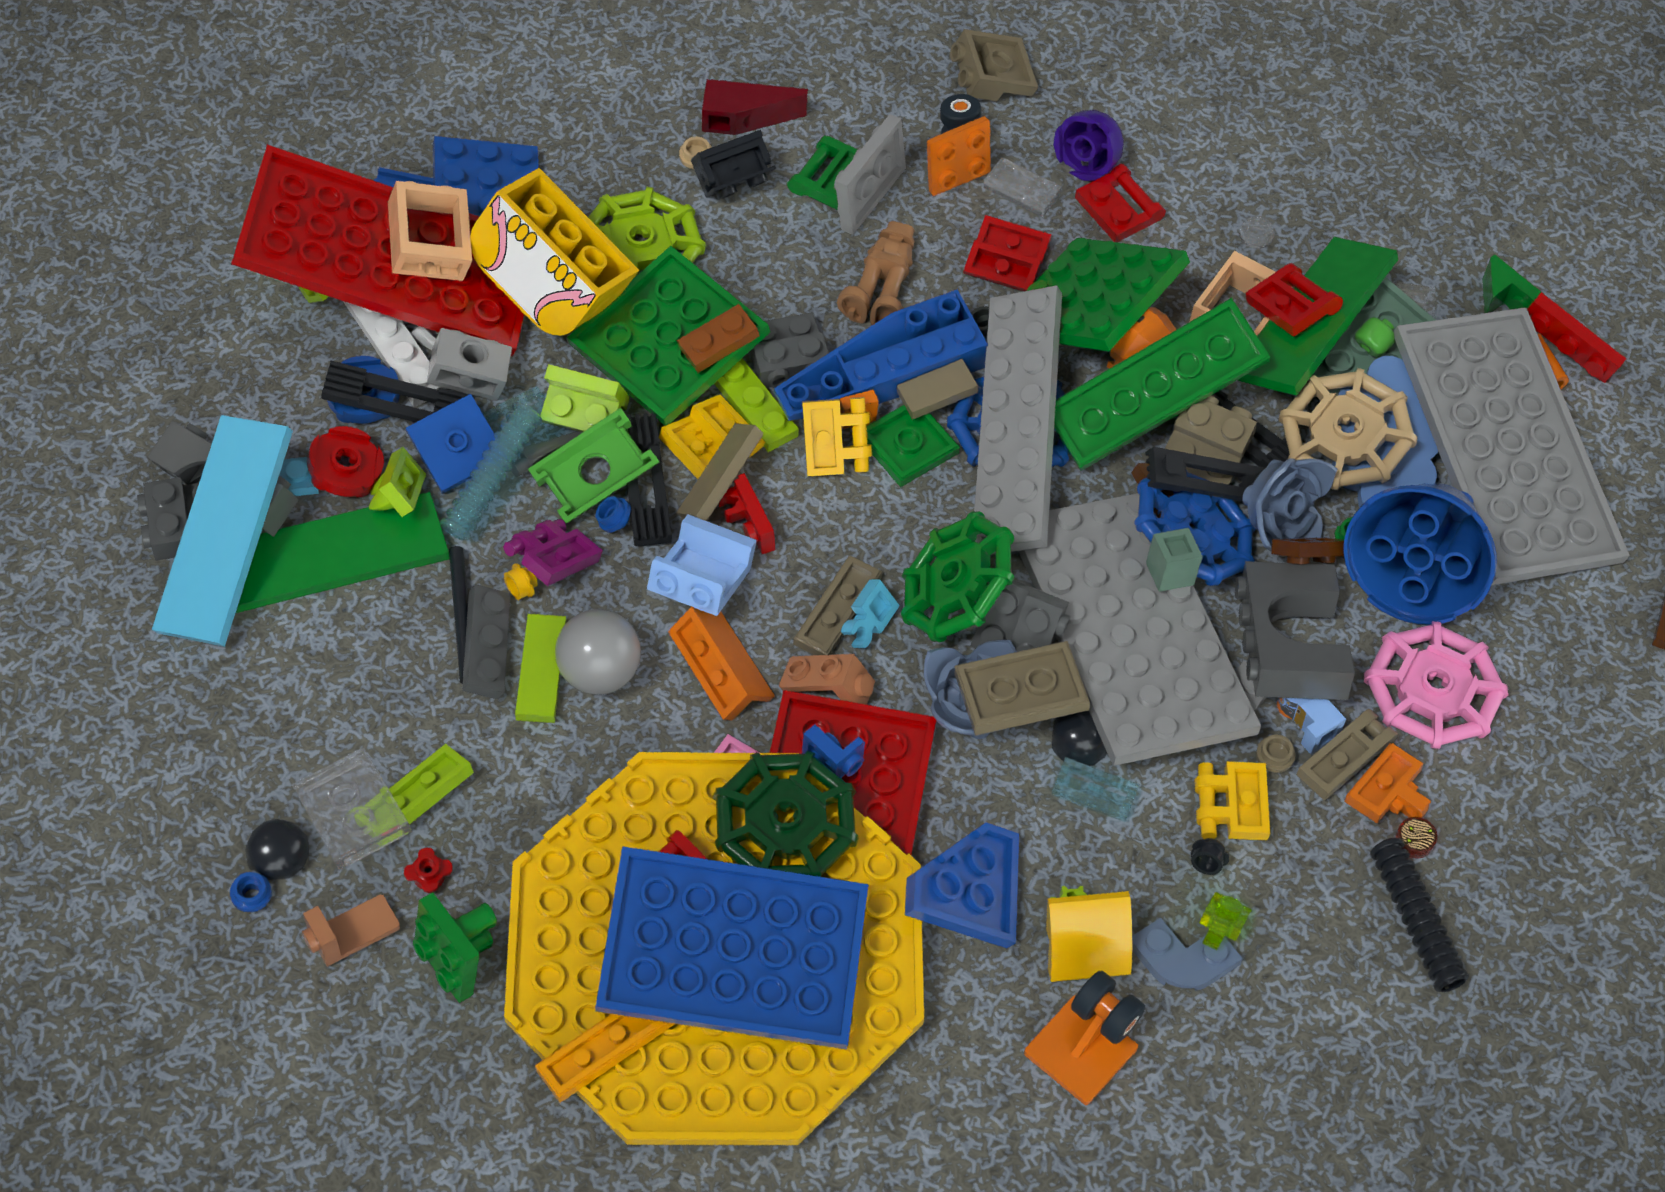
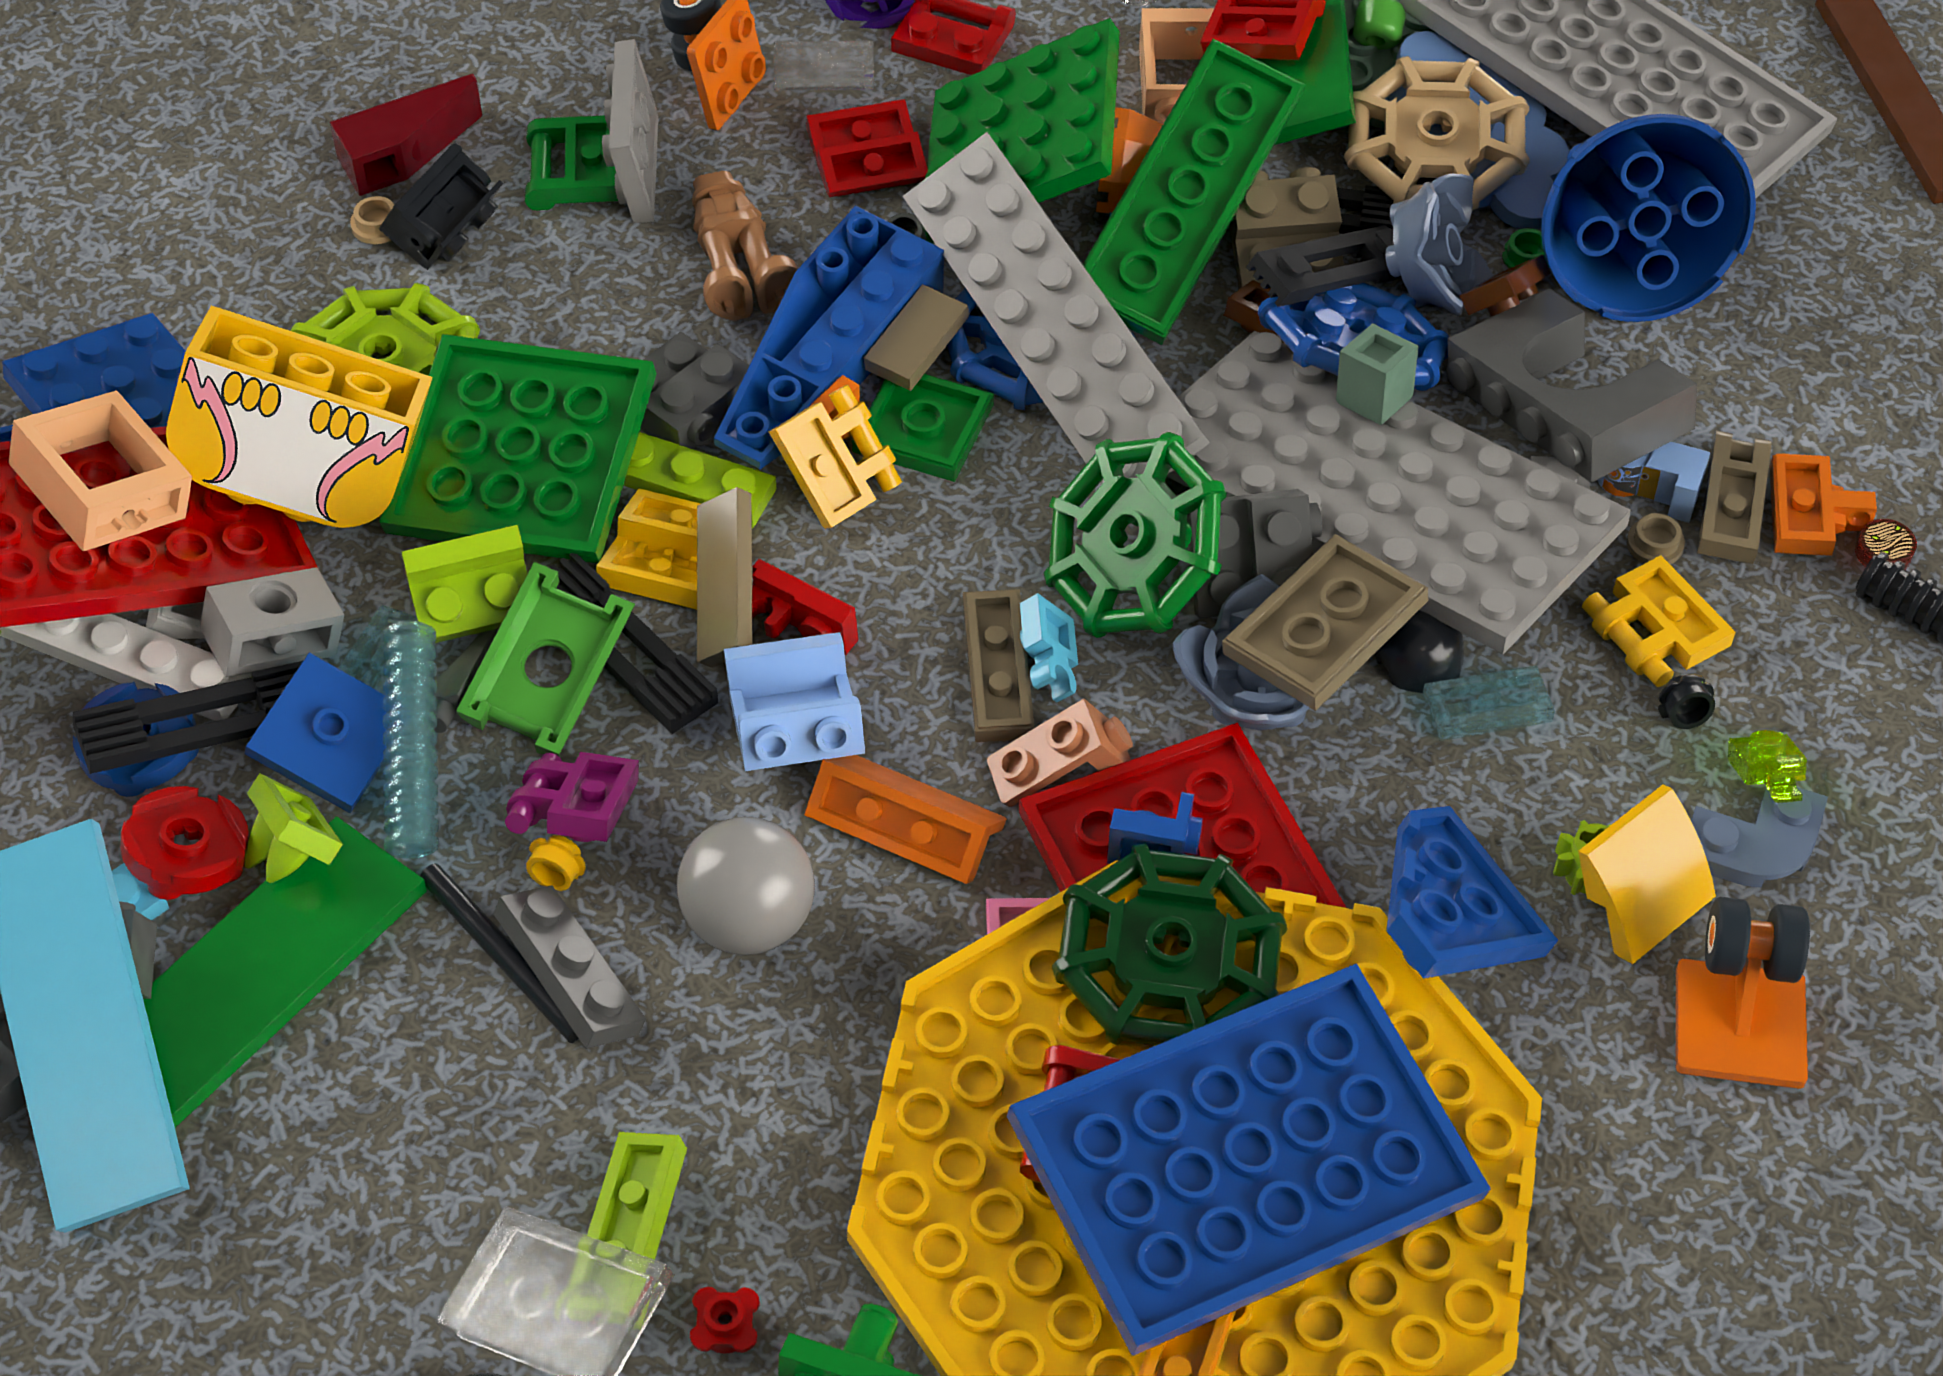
camera: 30 degrees left, 5 degrees down
(539, 670) = (669, 959): lime tile -> none
(613, 514) = (615, 707): blue plate -> none
(718, 338) = (598, 411): dark orange plate -> none
(1430, 702) = (1750, 330): bright pink plate -> none

